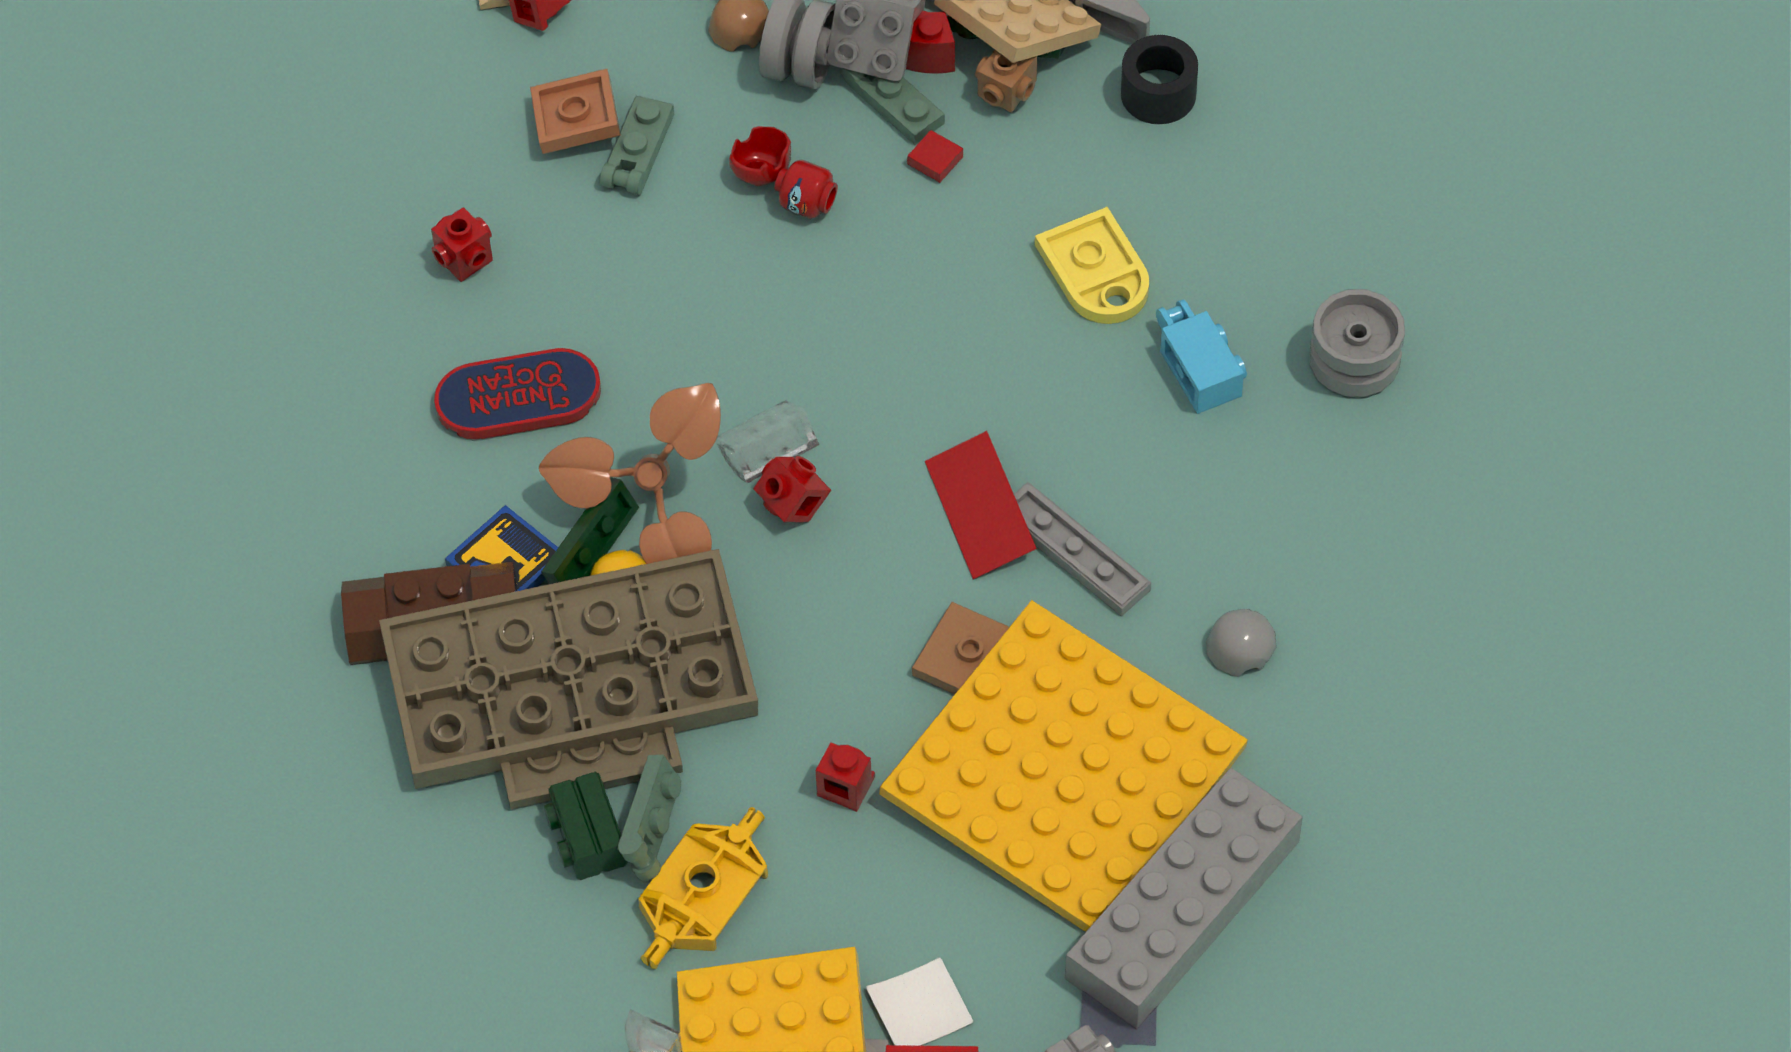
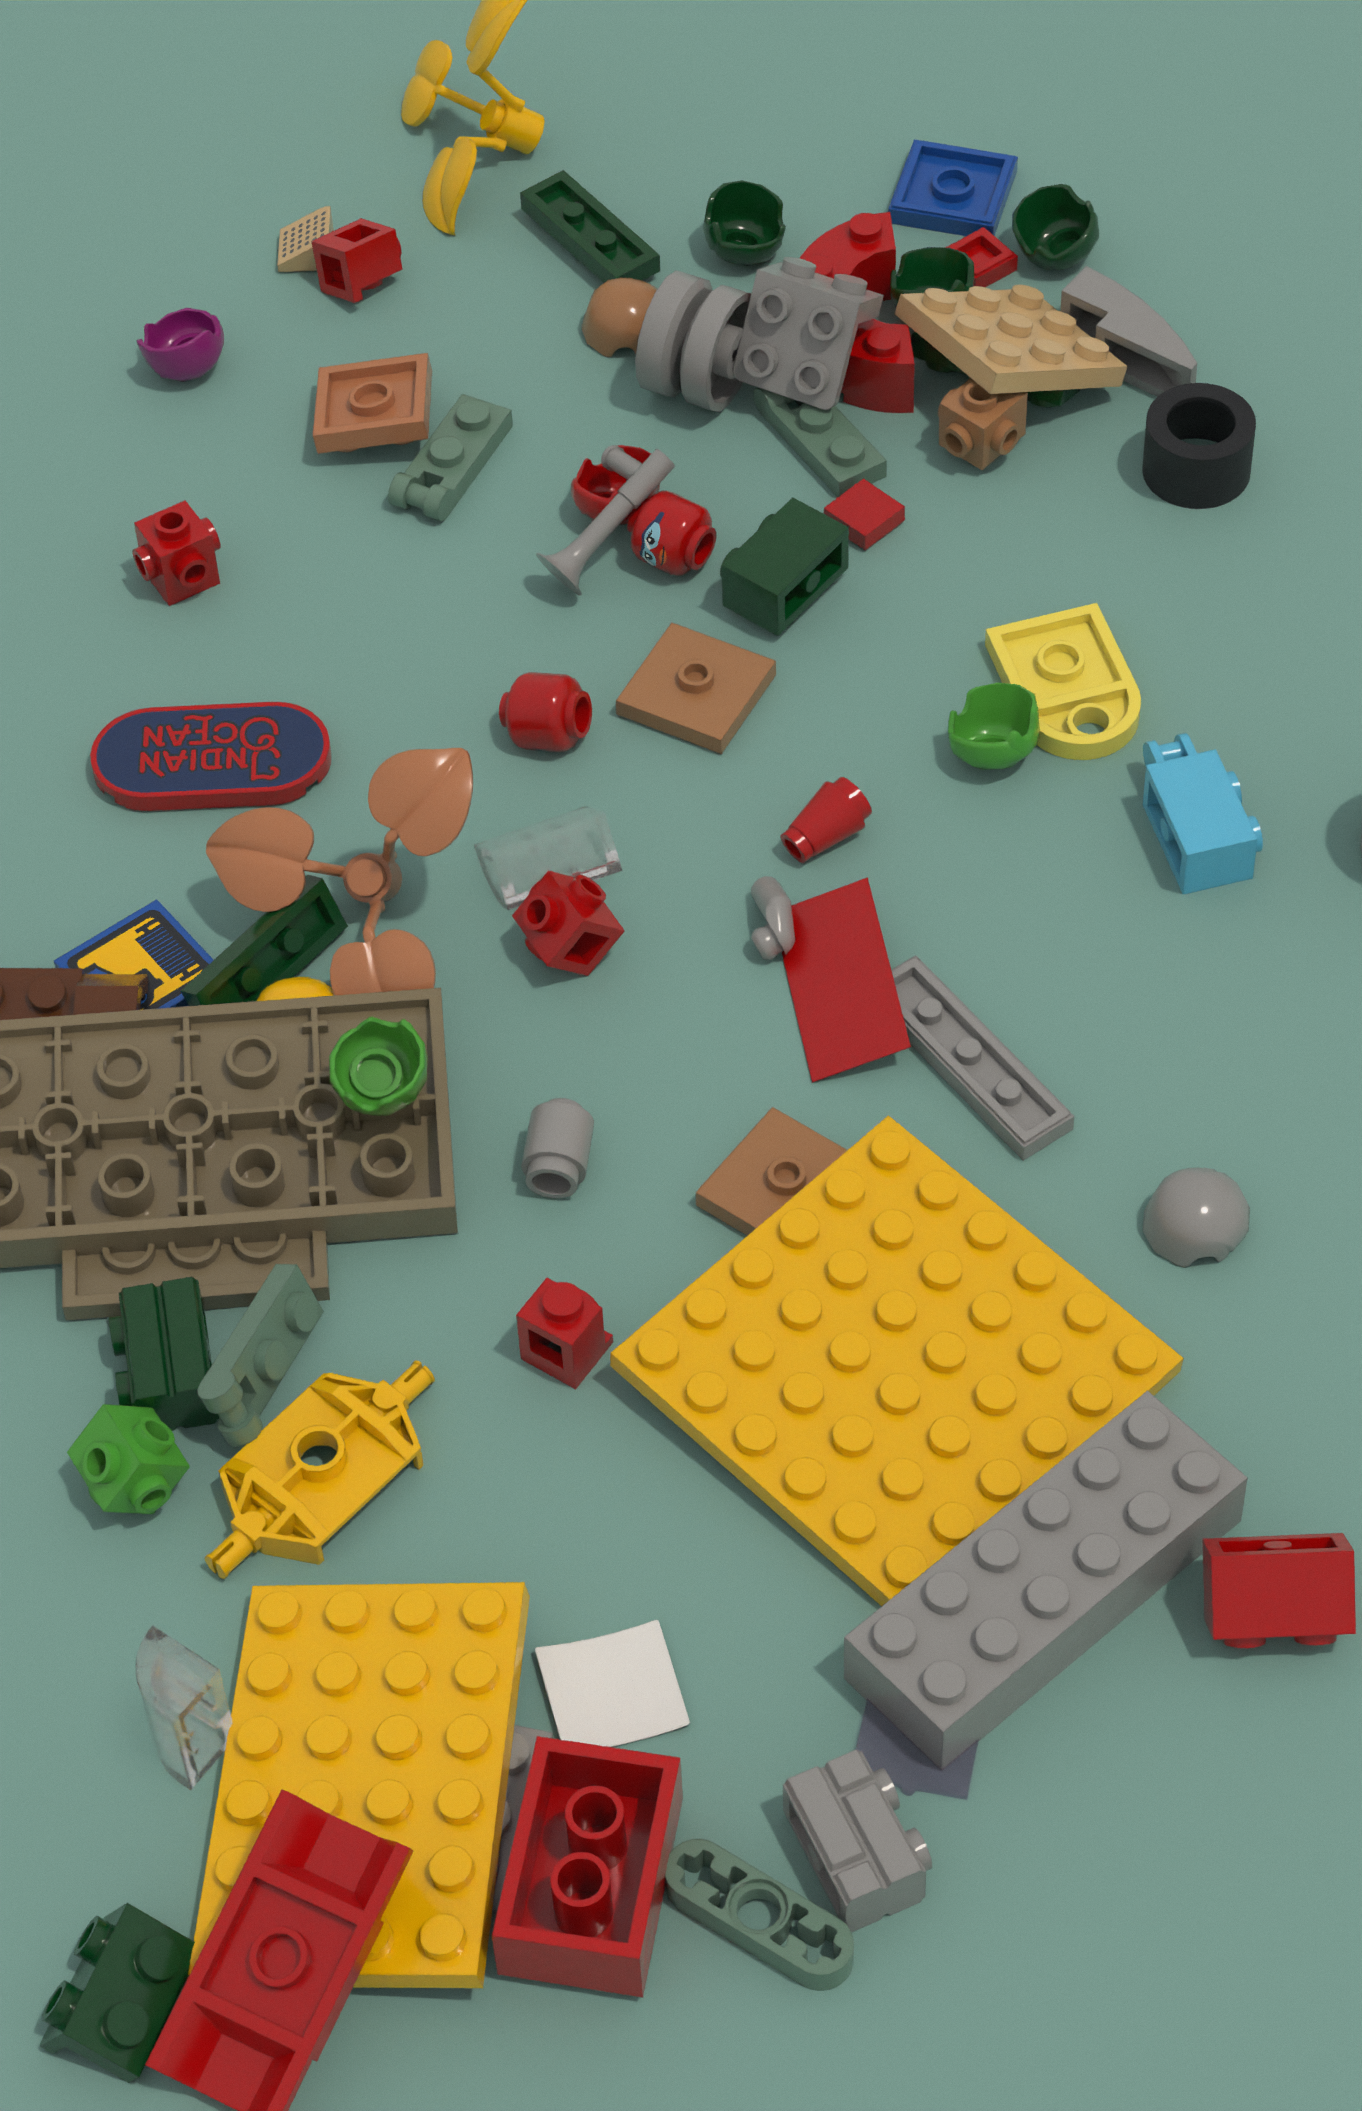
camera: 10 degrees right, 5 degrees down
(428, 78) = (183, 344): none -> magenta hair
(579, 900) = (128, 1459): none -> bright green brick
(692, 612) = (379, 1066): none -> bright green hair
(745, 334) = (546, 712): none -> red head
(781, 157) = (640, 482): none -> light grey piece
(815, 648) = (557, 1148): none -> light grey brick
(843, 302) = (696, 687): none -> medium nougat plate
(889, 205) = (784, 566): none -> dark green brick
(930, 462) = (777, 911): none -> light grey arm
(951, 390) = (827, 819): none -> red cone
(1054, 309) = (995, 726): none -> bright green hair
(1331, 884) = (1279, 1588): none -> red brick

